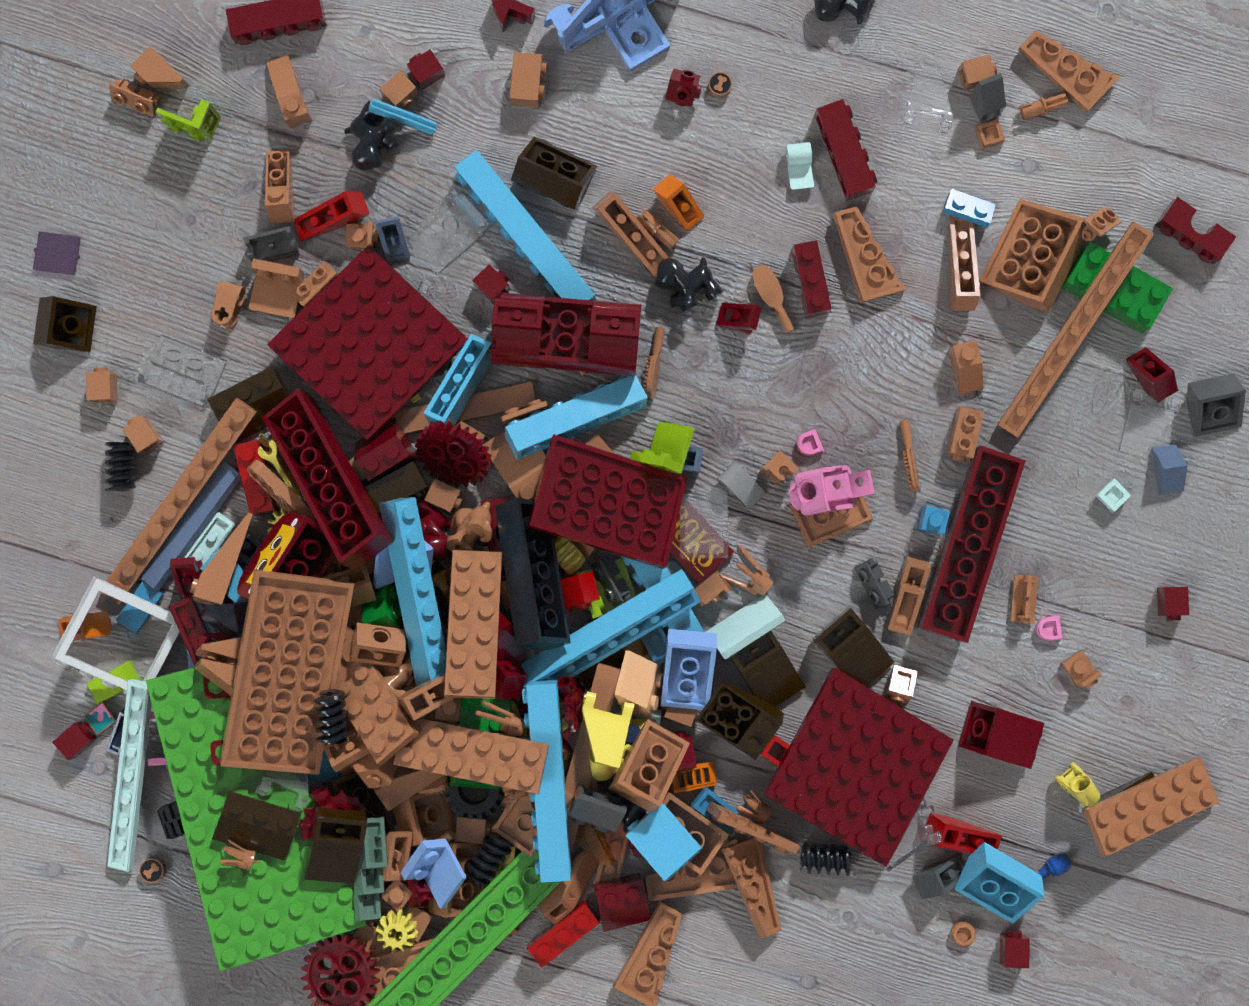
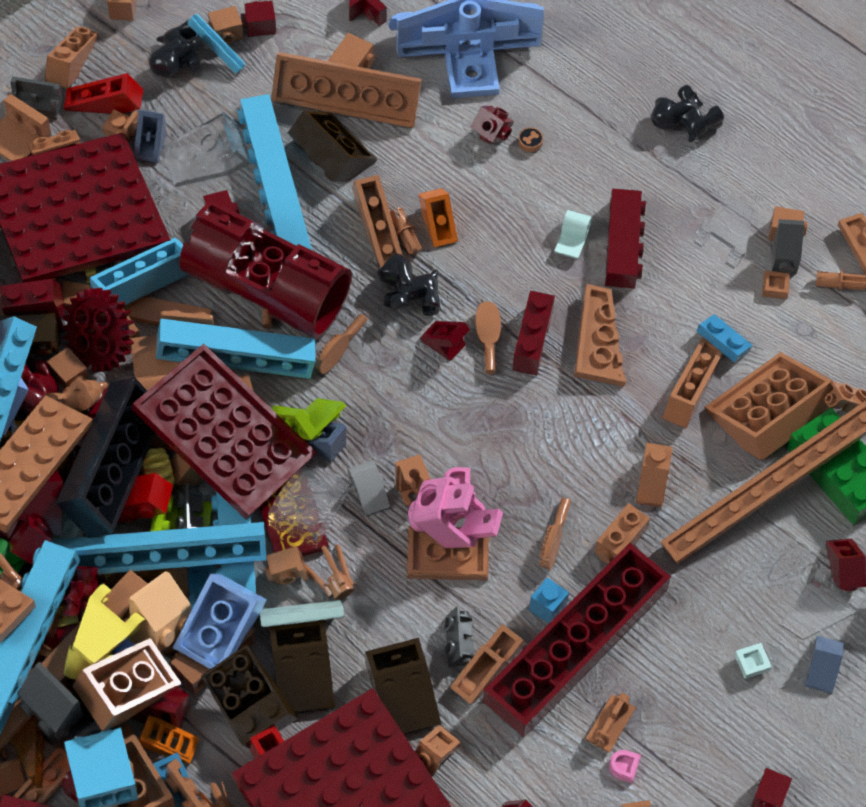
camera: 25 degrees right, 25 degrees down
(540, 113) = (346, 89): none -> nougat plate

